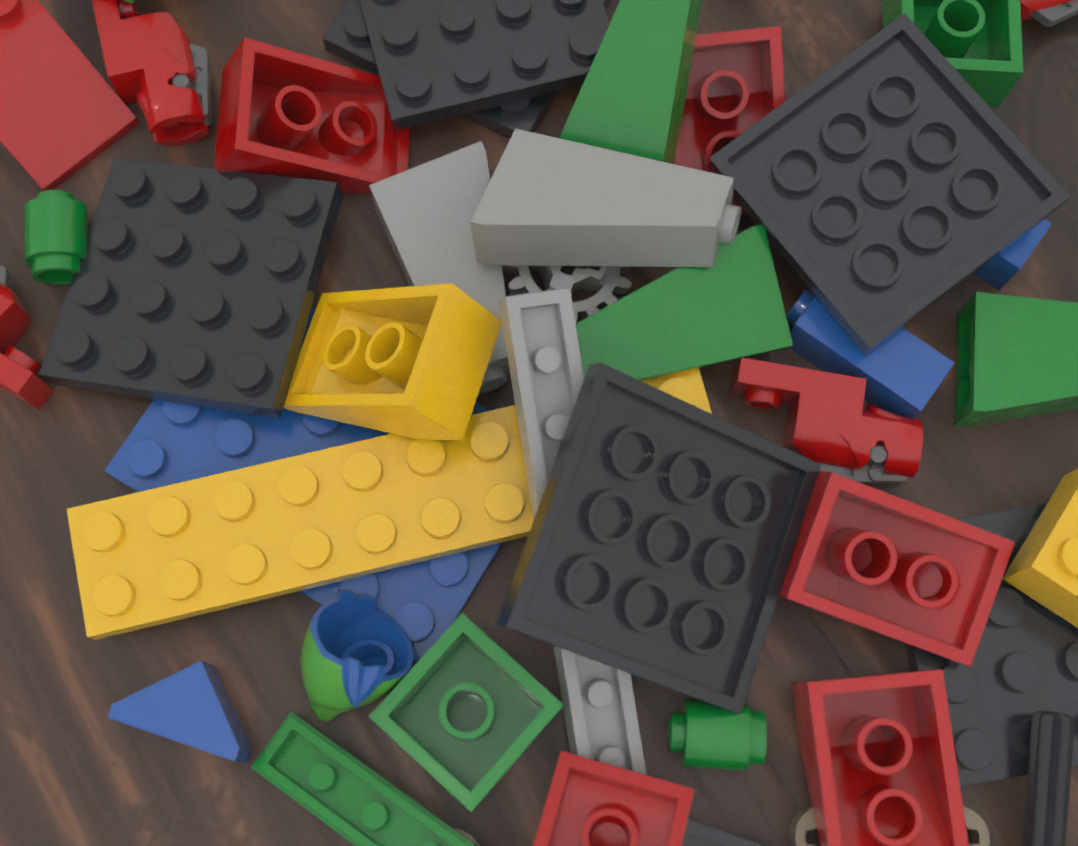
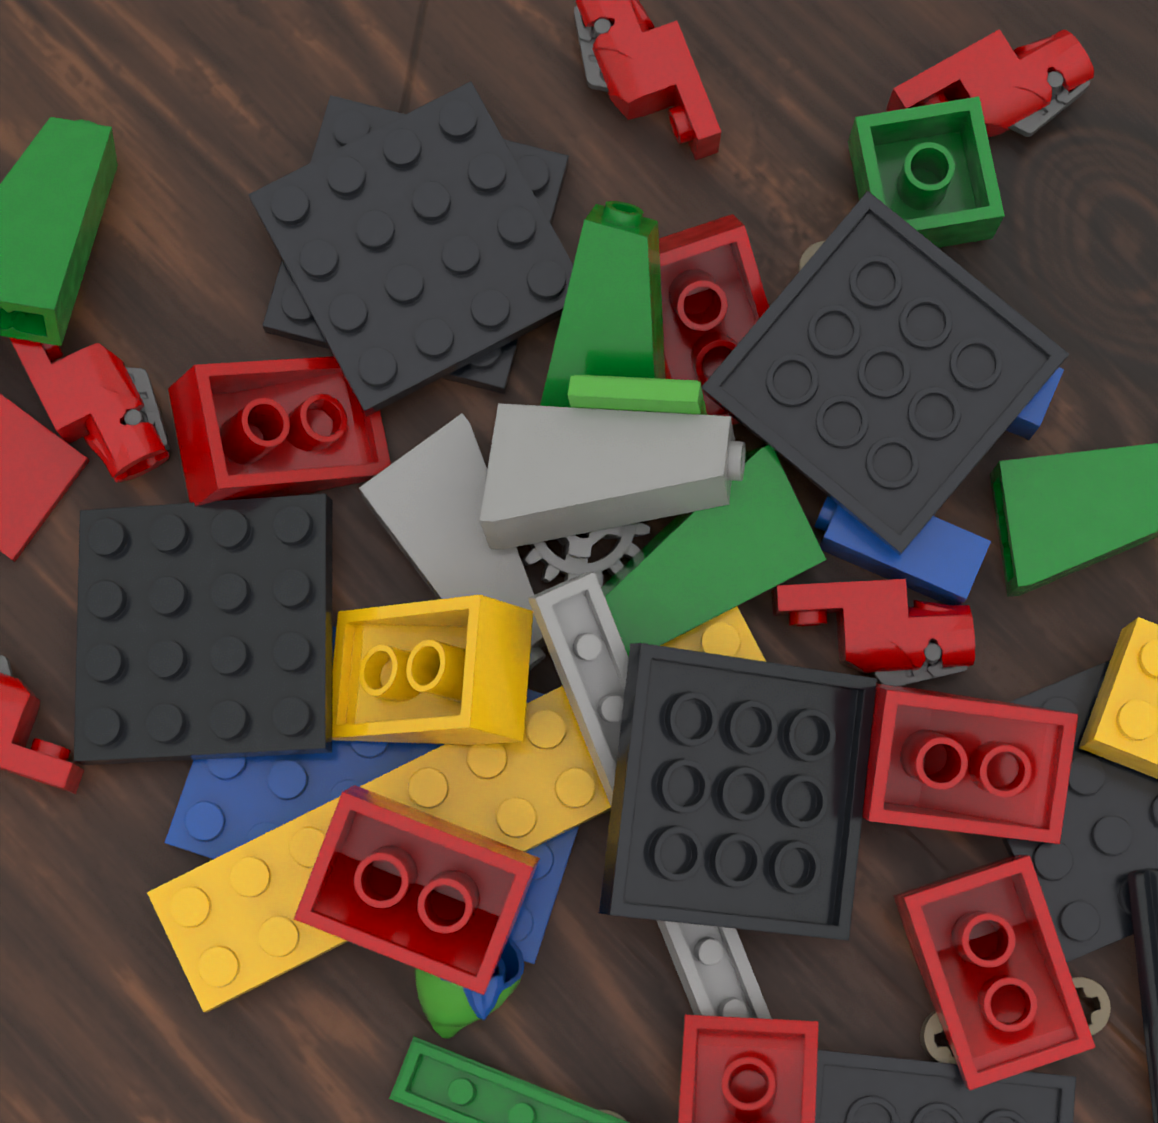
camera: 10 degrees left, 5 degrees up
(55, 236) = (45, 611): green brick -> none
(189, 710) = (318, 1059): blue slope -> none
(318, 558) = (416, 888): none -> red slope
(466, 712) = (587, 998): green brick -> none
(648, 141) = (636, 394): none -> bright green tile
(717, 737) = (831, 966): green brick -> none

